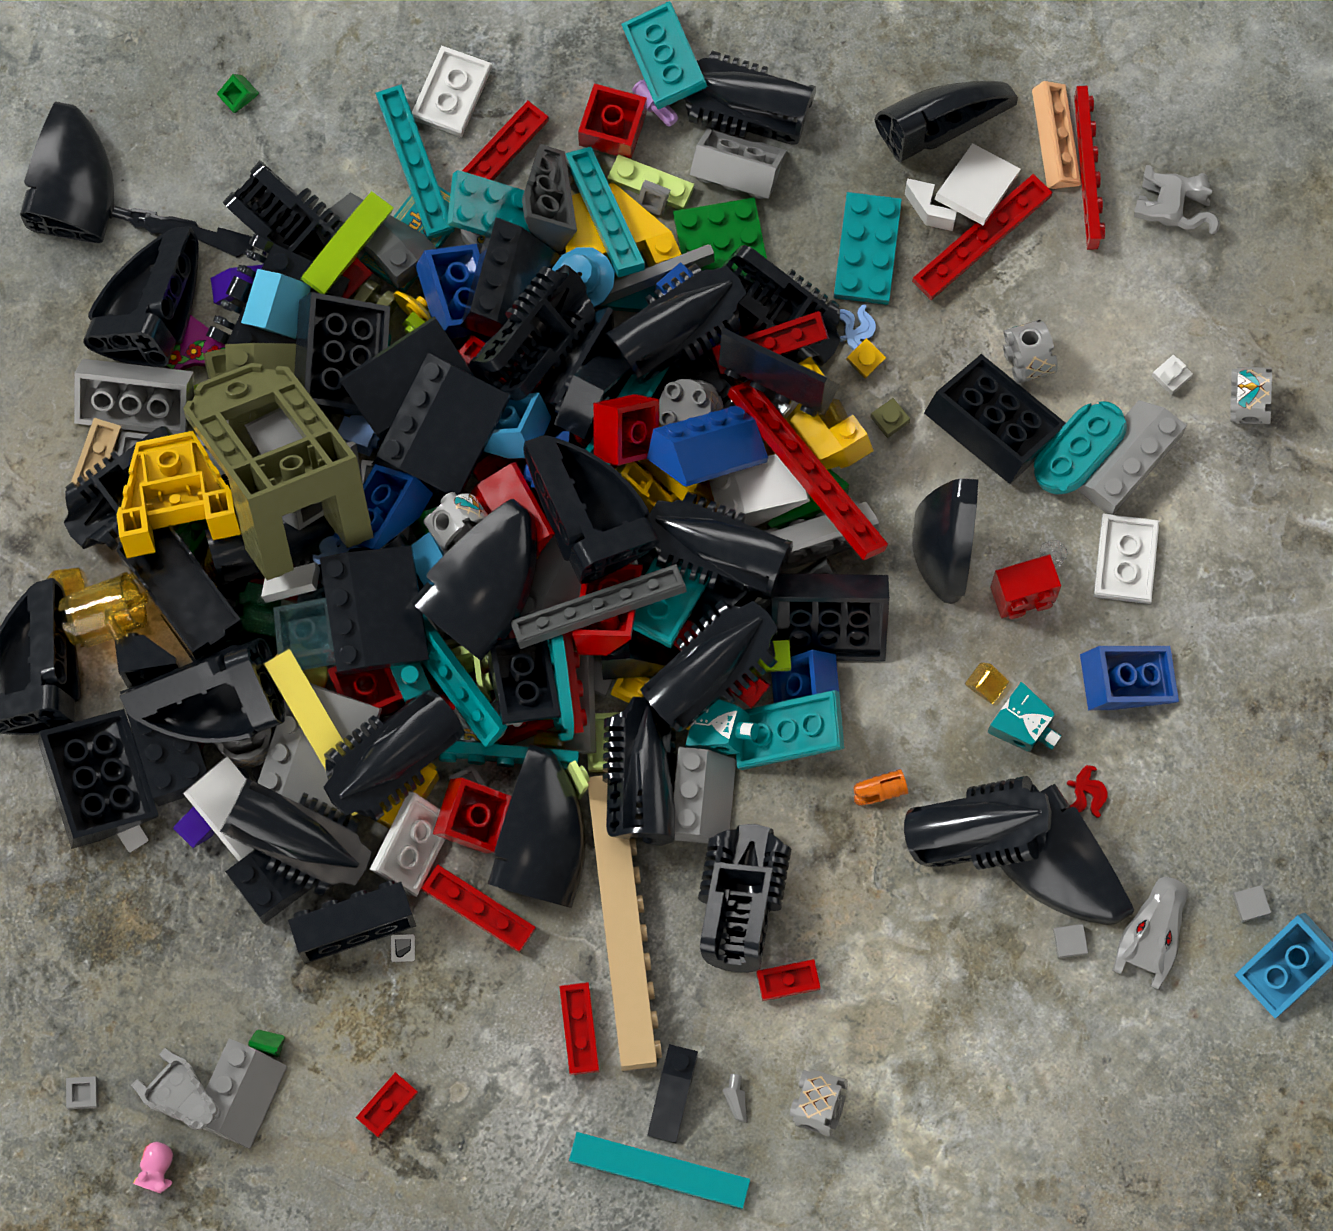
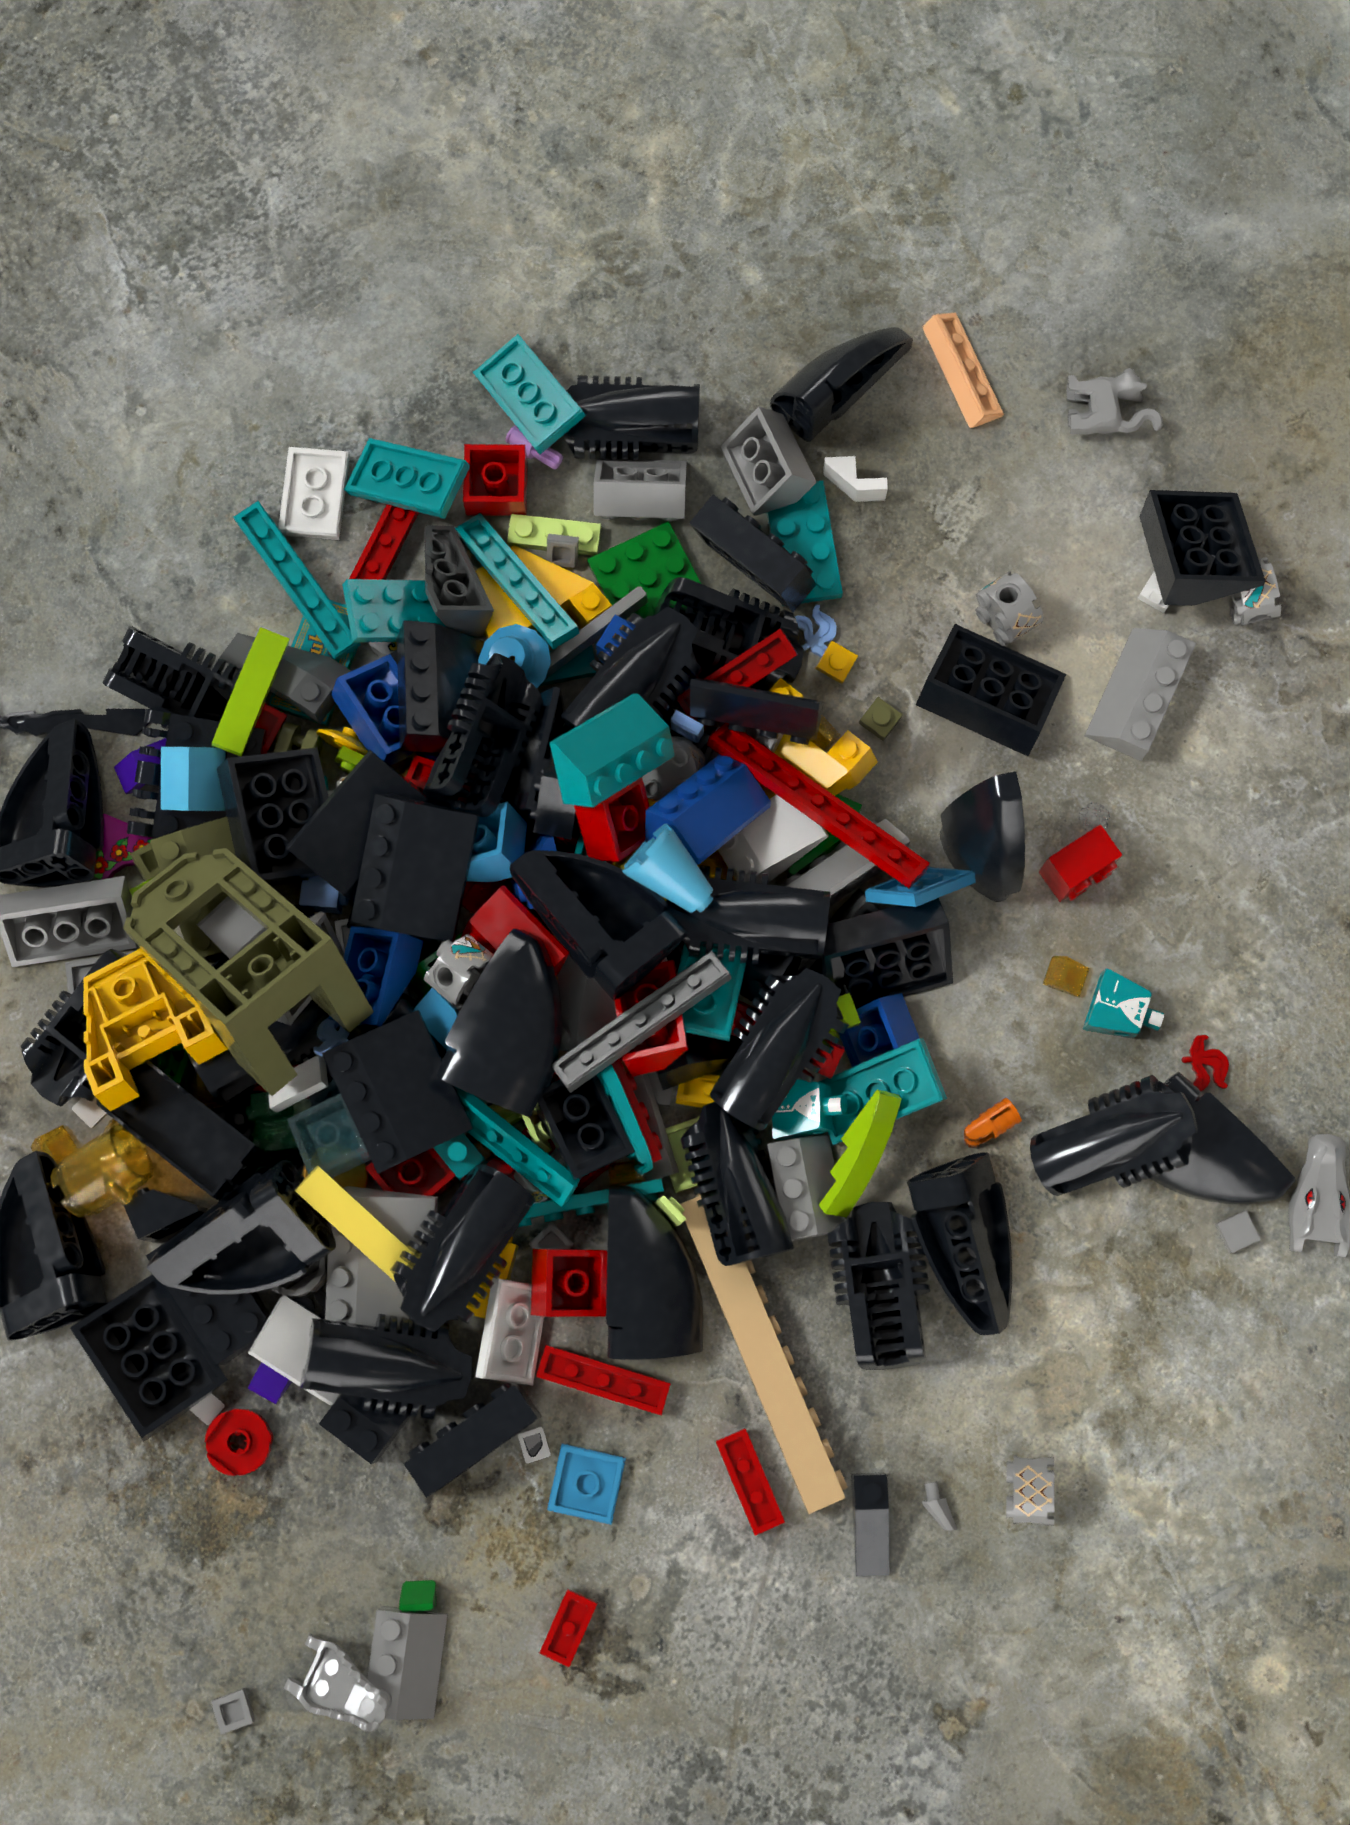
camera: 15 degrees left, 5 degrees up
(99, 444) = (44, 988): tan plate -> none
(106, 561) = (88, 1111): none -> white sticker
(154, 855) = (242, 1461): none -> red plate
(154, 1164) = (335, 1772): bright pink animal -> none
(237, 92) = (84, 556): green slope -> none
(438, 992) = (586, 1483): none -> dark azure tile
(536, 99) = (407, 477): none -> teal tile
(638, 370) = (610, 751): none -> teal slope
(659, 485) = (670, 871): none -> medium azure cone
(659, 1170) = (881, 1611): teal tile -> none
(714, 374) = (687, 726): none -> light blue tile
(761, 772) = (865, 1147): none -> lime slope
(788, 980) = (956, 1362): red plate -> none
(819, 242) = (753, 552): none -> black brick
(828, 875) = (966, 1238): none -> black panel
(856, 169) = (767, 462): none -> light grey slope
(877, 565) = (932, 885): none -> dark azure tile
(977, 184) = (898, 443): white tile -> none
(982, 238) = (919, 498): red plate -> none
(1080, 447) = (1089, 696): teal tile -> none
(1087, 158) = (1004, 385): red plate -> none
(1126, 559) = (1171, 801): white tile -> none
(1128, 677) = (1213, 929): blue slope -> none
(1215, 342) = (1199, 546): none -> black slope

